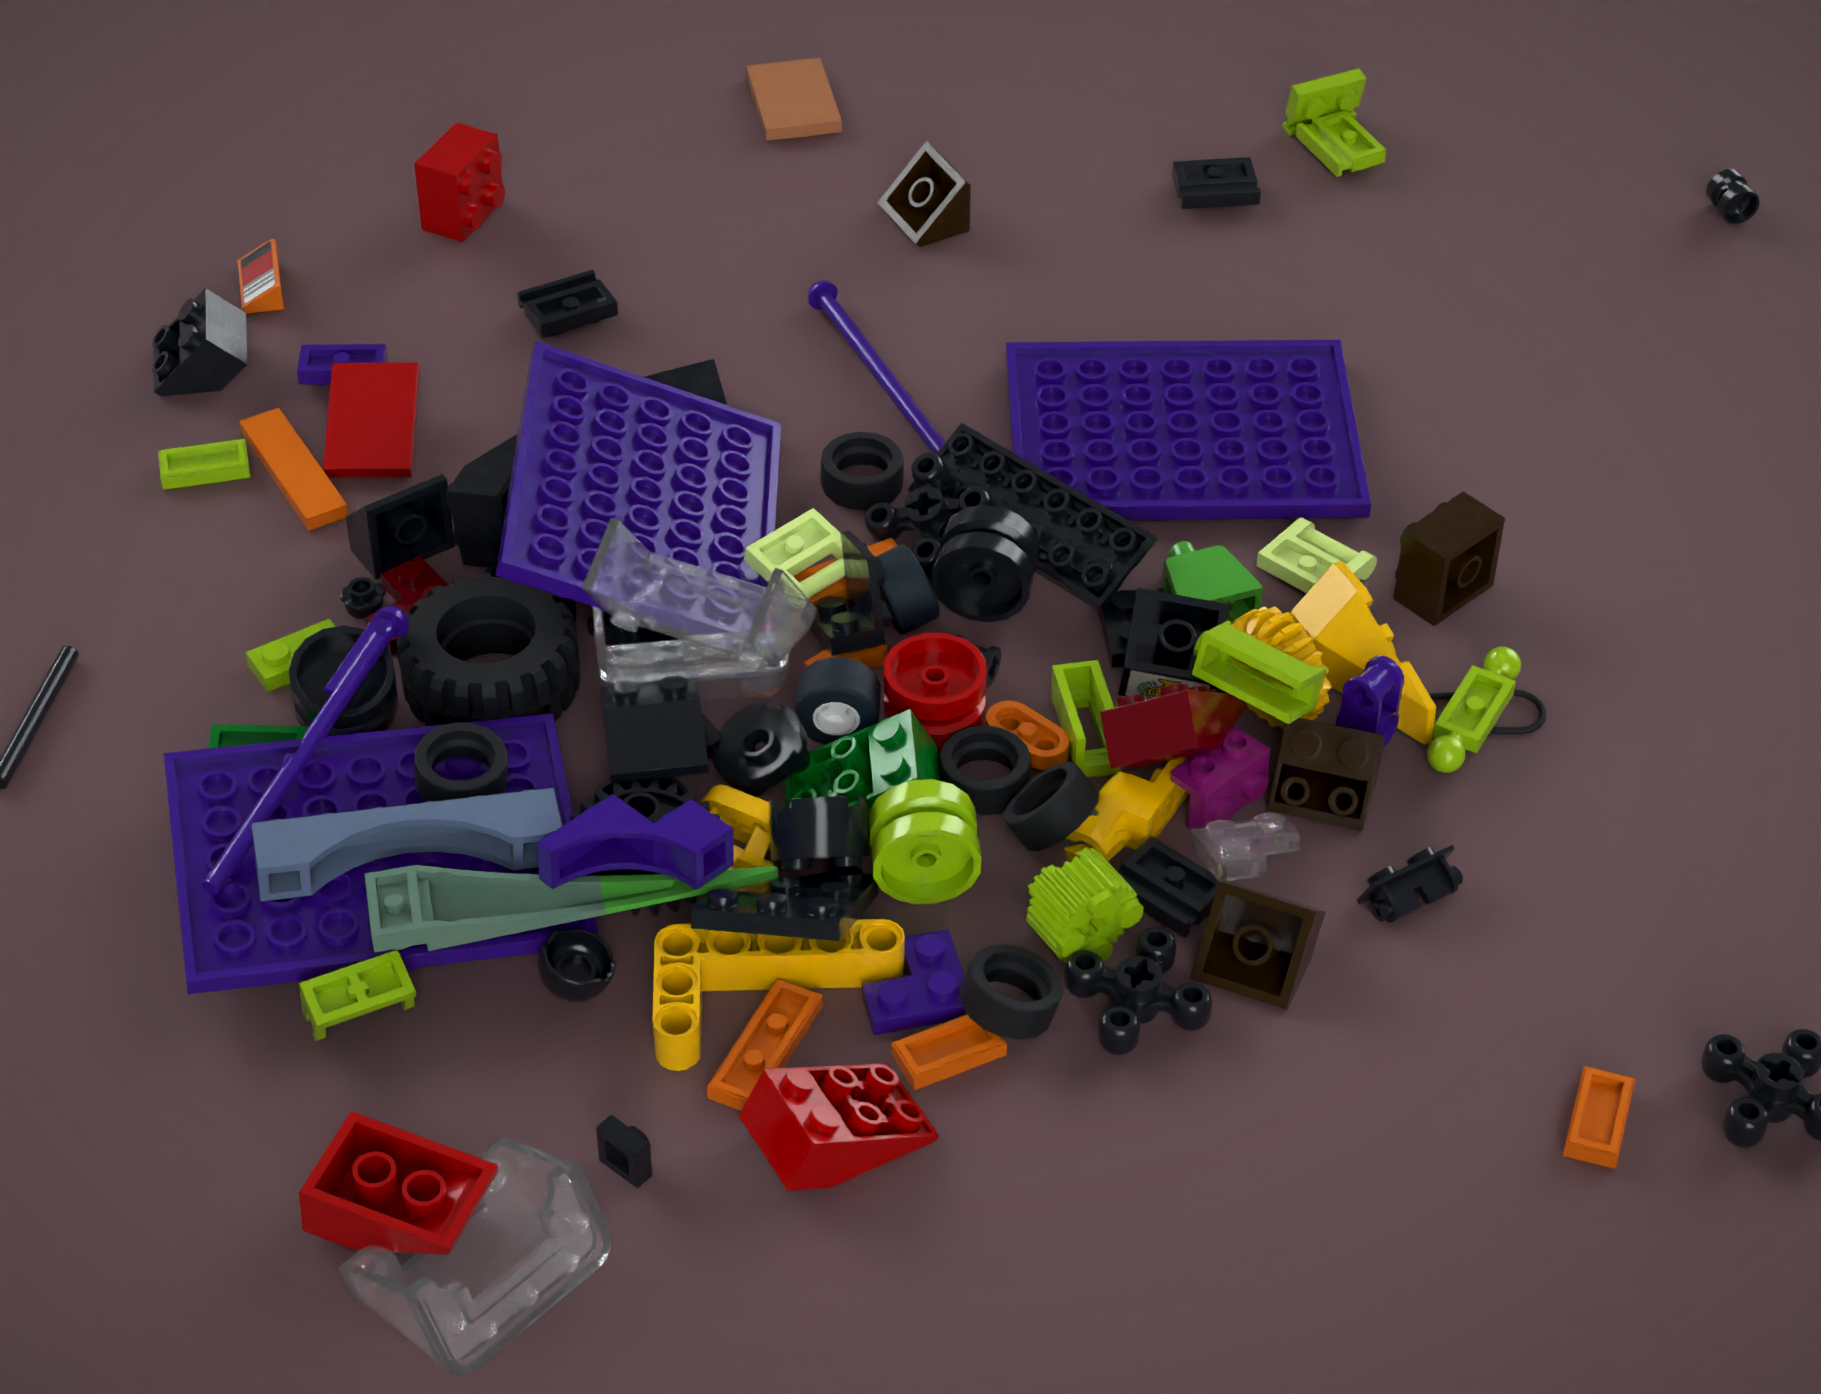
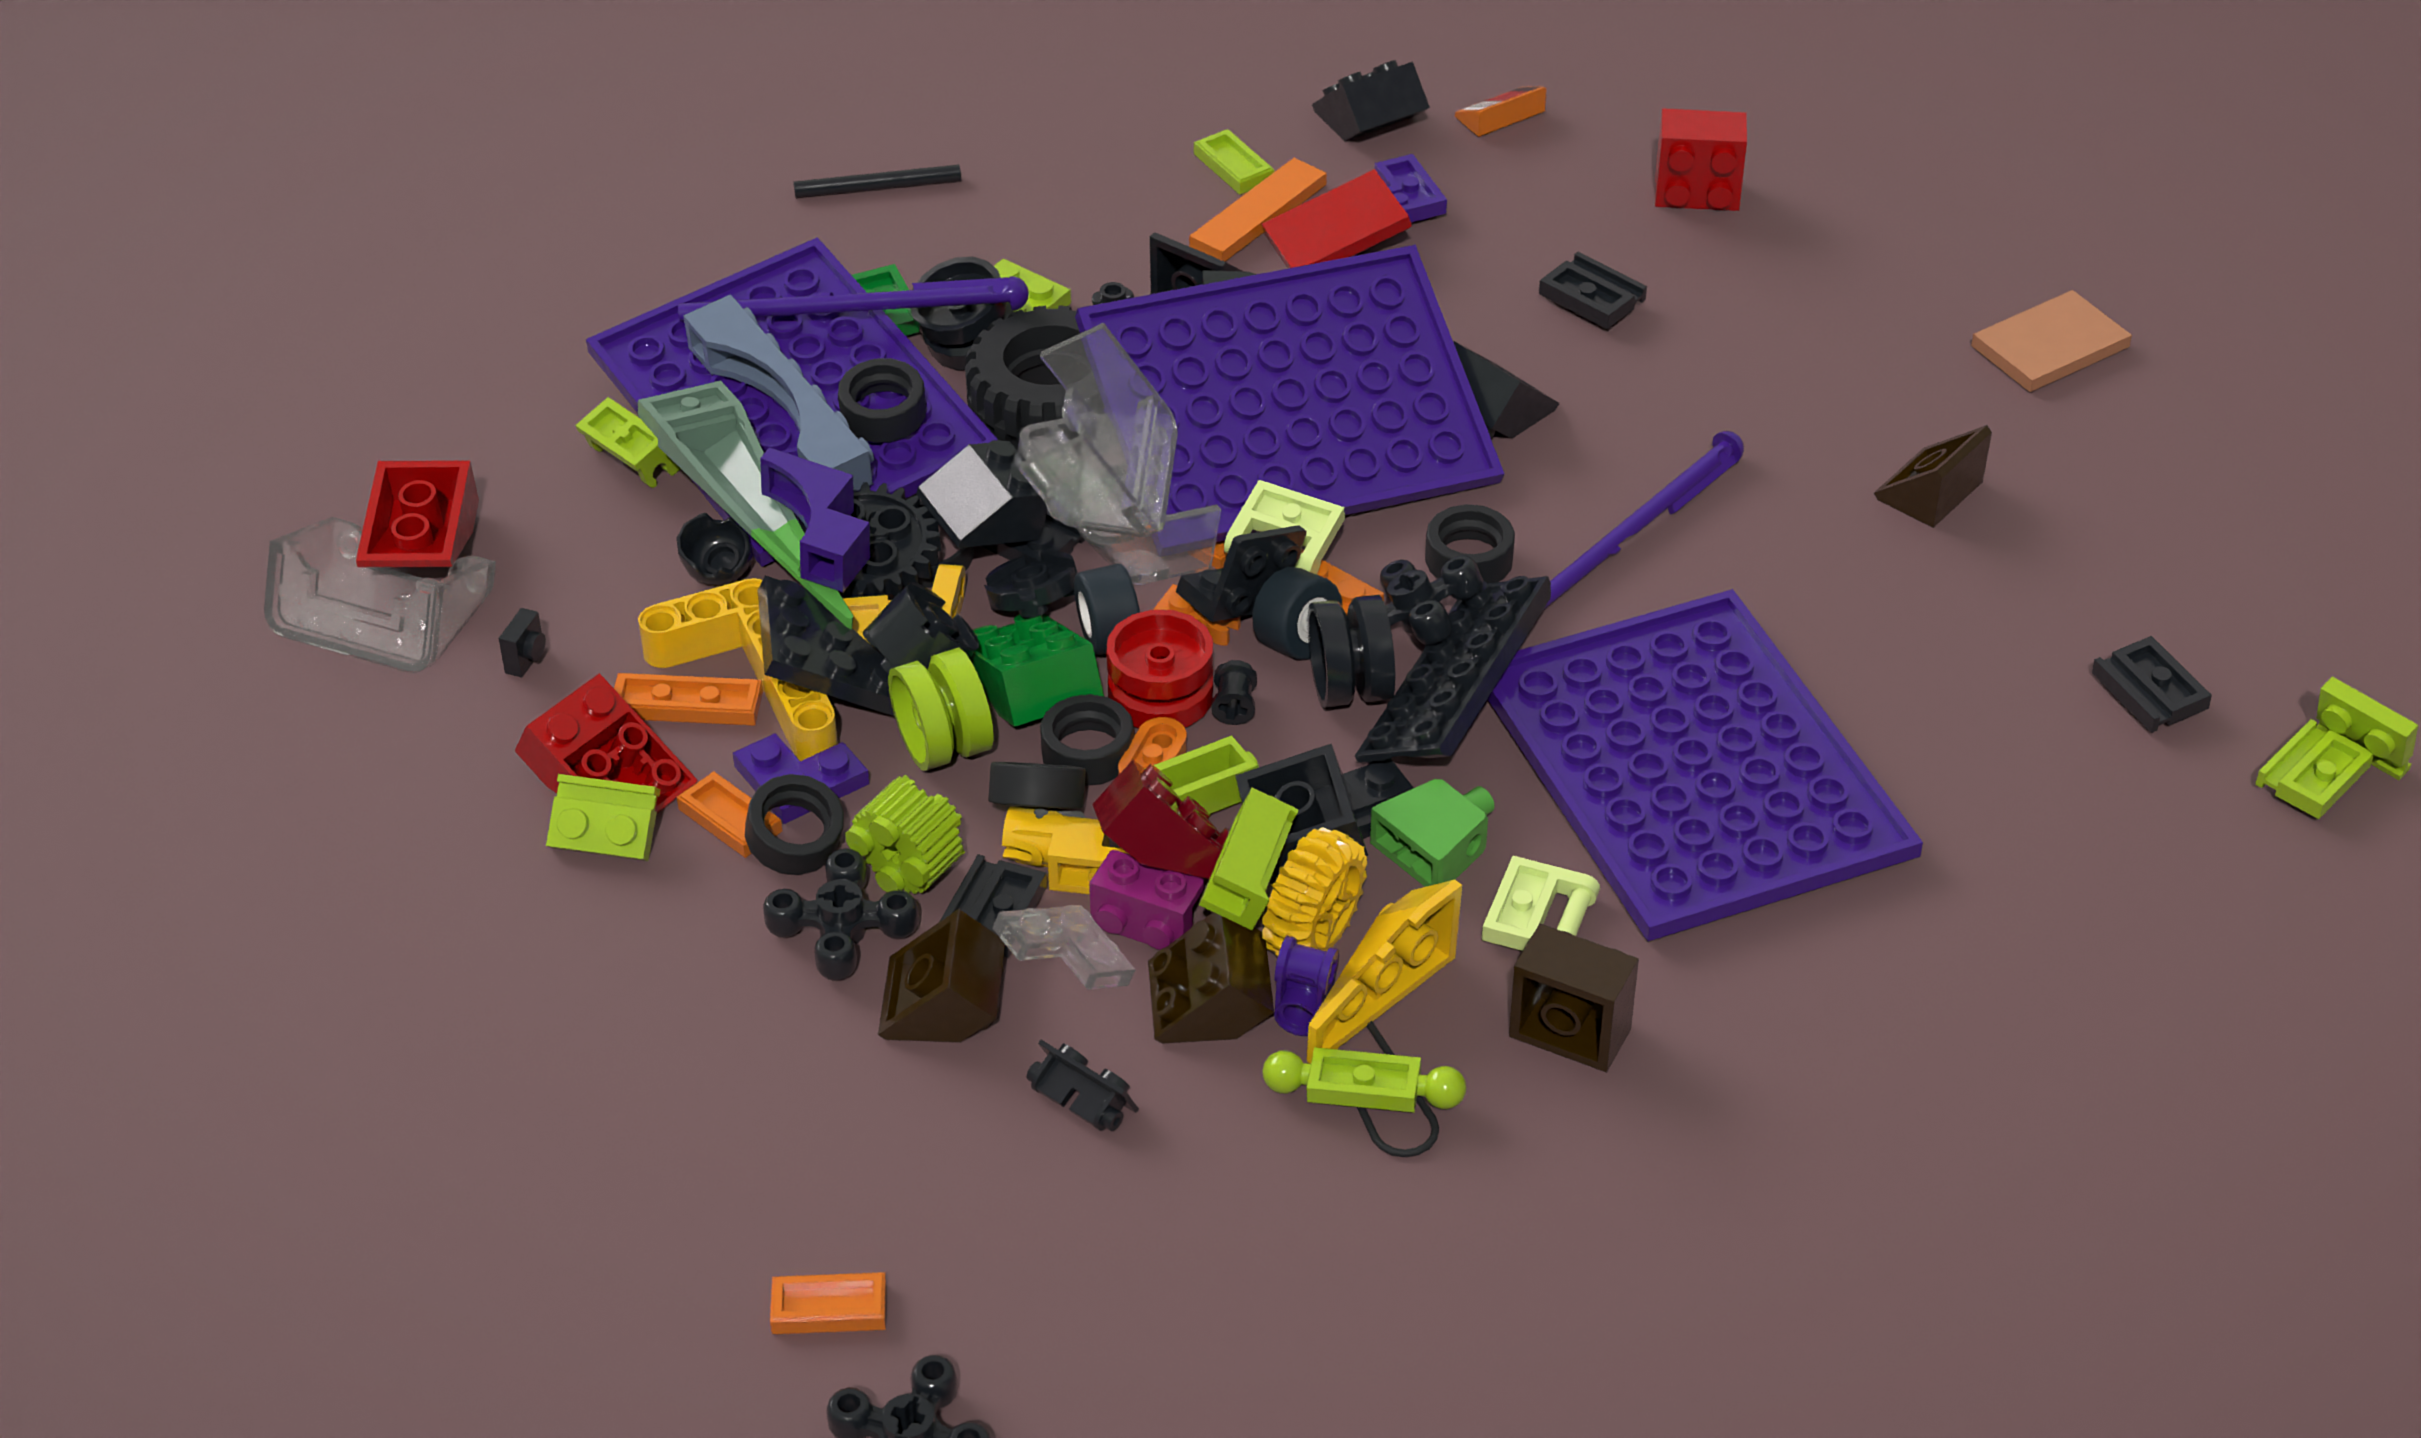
camera: 70 degrees right, 0 degrees up
(929, 1136) = (603, 817): none -> lime plate

